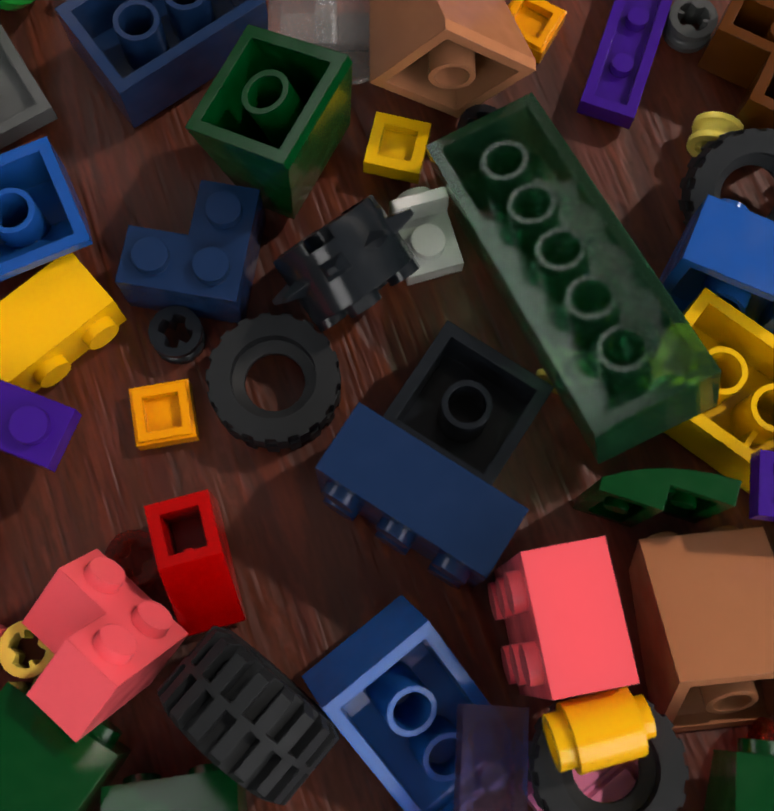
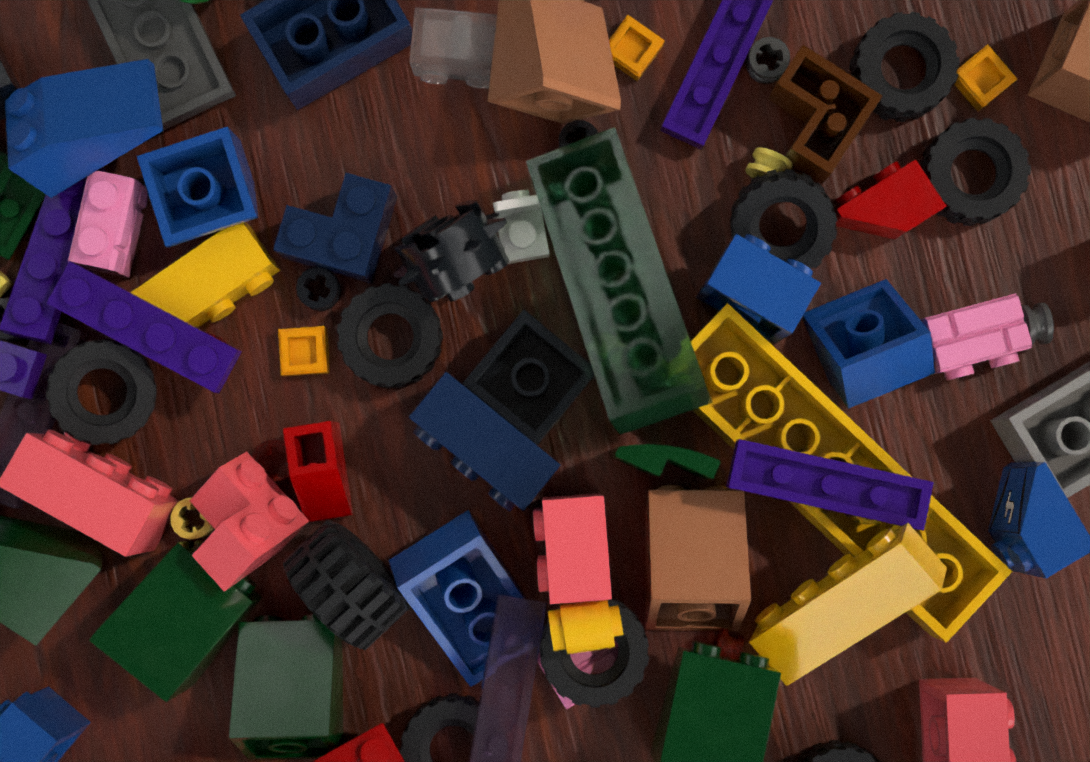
camera: 15 degrees right, 10 degrees up
(275, 115) = (405, 131): dark green slope -> none
(397, 147) = (507, 150): yellow plate -> none

